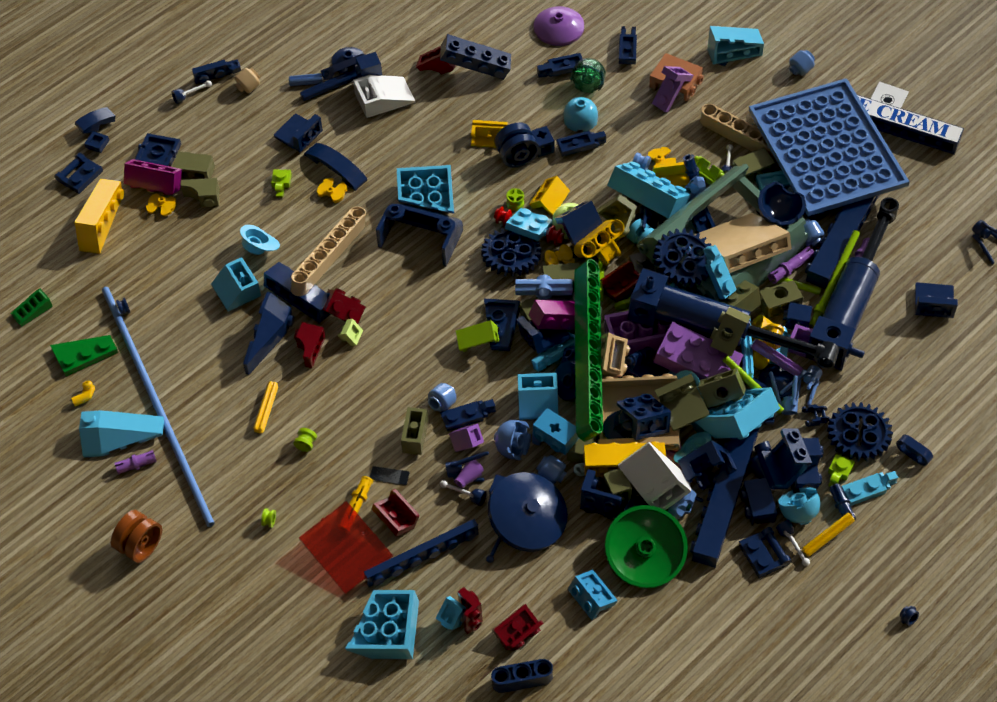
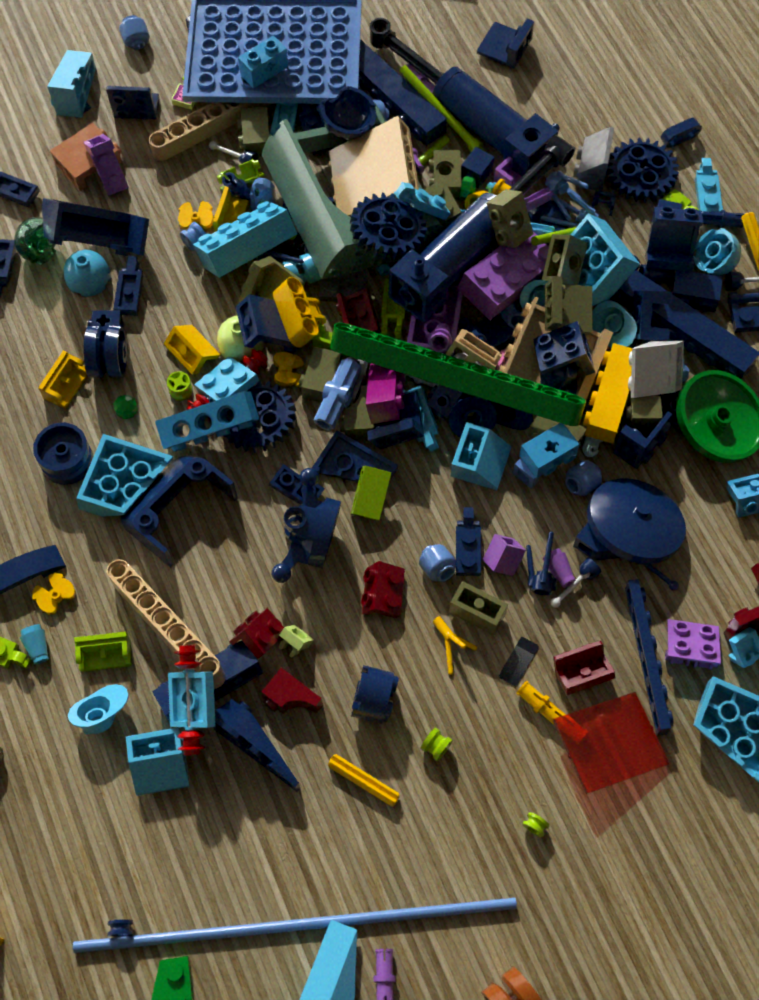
camera: 70 degrees left, 10 degrees up
(274, 276) = (191, 700): none -> medium azure plate
(293, 192) = (35, 643): none -> medium azure cone
(301, 230) = (103, 651): none -> lime hinge
(324, 387) = (373, 695): none -> dark blue brick
(390, 423) = (449, 635): none -> yellow plant
(408, 373) = (383, 589): none -> dark red bracket
(428, 310) = (314, 531): none -> dark blue piece
(430, 149) = (63, 453): none -> dark blue wheel
(443, 580) = (693, 643): none -> medium lavender hinge
(467, 295) = (288, 483): none -> dark blue slope
(486, 176) = (125, 406): none -> green tile
(488, 220) = (171, 427): none -> dark azure brick
(513, 439) = (528, 505): medium blue cylinder -> none
(612, 94) = (94, 226): none -> dark blue windscreen
(614, 327) = (440, 338): none -> medium lavender cone
(737, 86) = (133, 102): none -> dark blue bracket
(774, 314) = (467, 187): none -> green tile
(801, 139) = (263, 61): none -> dark azure brick
(846, 392) = (594, 159): none -> flat silver slope

